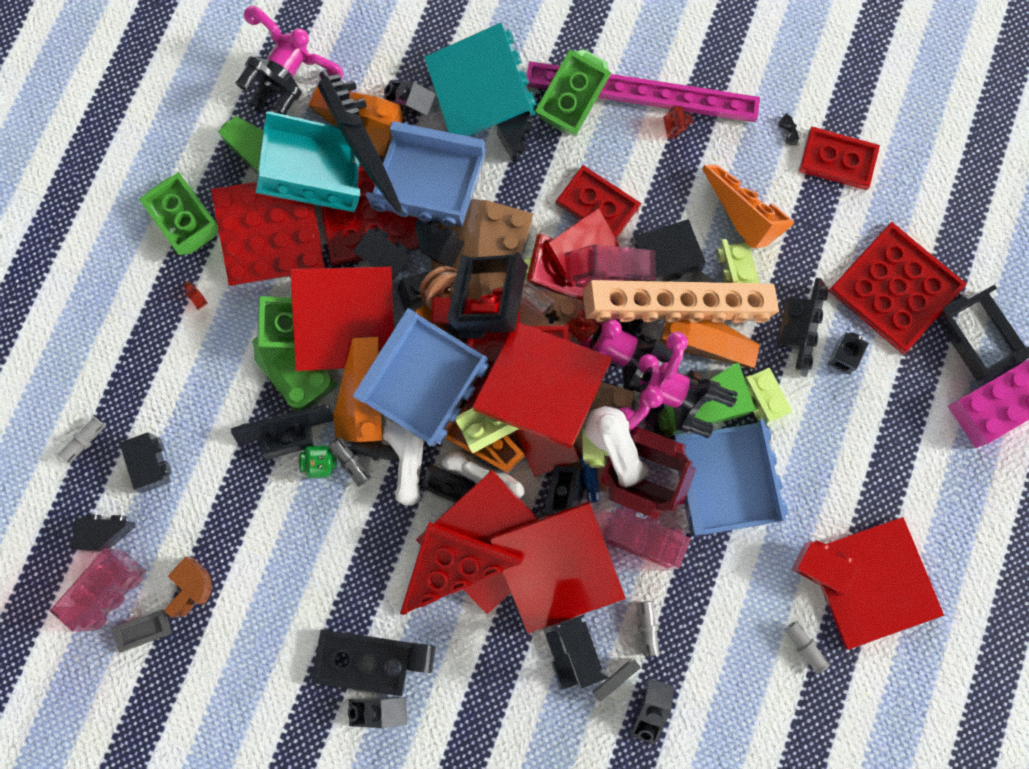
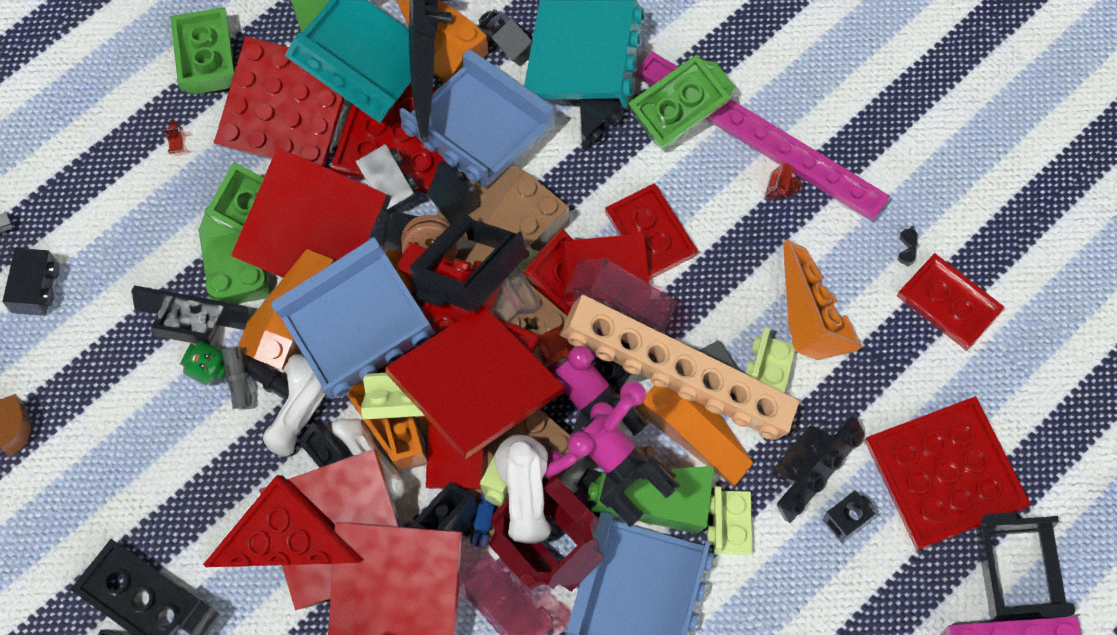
camera: 25 degrees right, 10 degrees down
(674, 248) = (702, 315): black brick -> none

